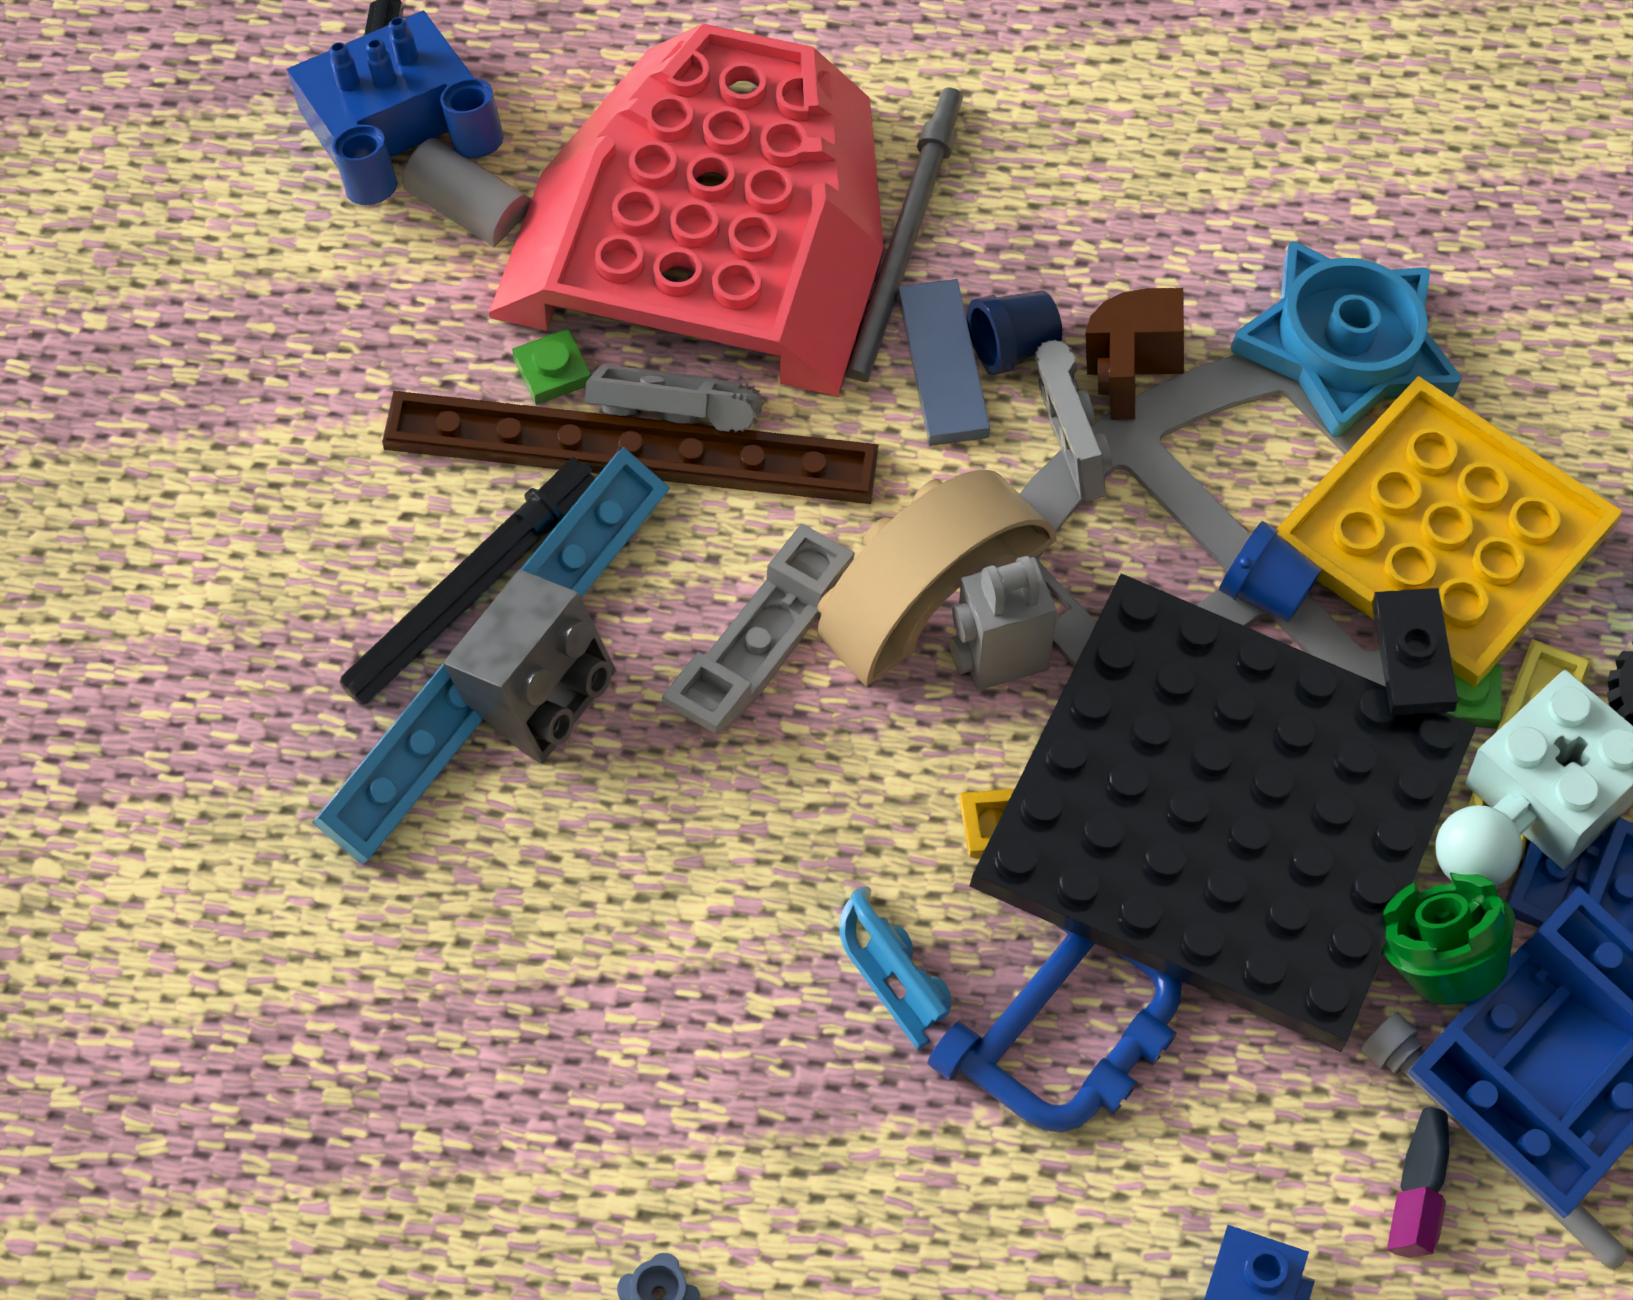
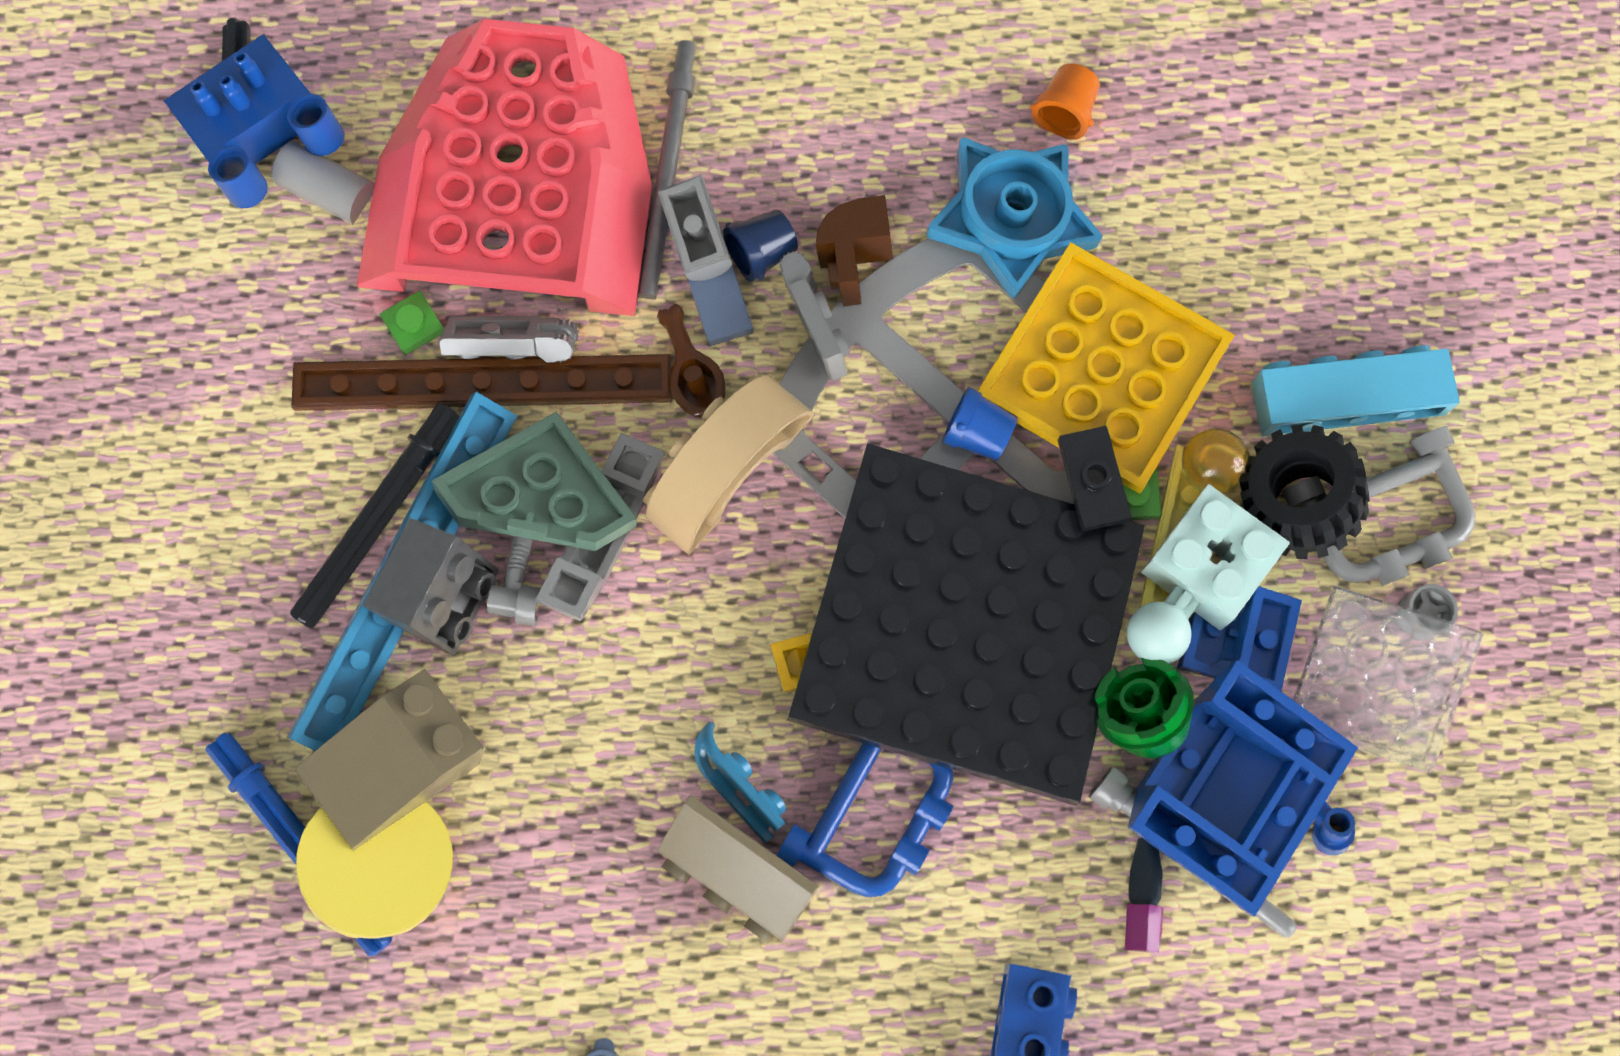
camera: 10 degrees left, 15 degrees up
(260, 882) = (269, 807): none -> blue axle
(401, 986) = (383, 883): none -> light yellow tile
(446, 860) = (390, 759): none -> dark tan slope
(633, 701) = (513, 597): none -> light grey brick
(685, 569) = (537, 489): none -> sand green plate
(878, 1057) = (735, 871): none -> slope
(902, 465) = (694, 376): none -> reddish brown piece
(934, 299) = (695, 229): none -> light grey brick
(1003, 624) = (784, 501): light grey brick -> none
(1434, 218) = (1067, 102): none -> orange piece
(1581, 644) = (1215, 459): none -> clear yellow piece

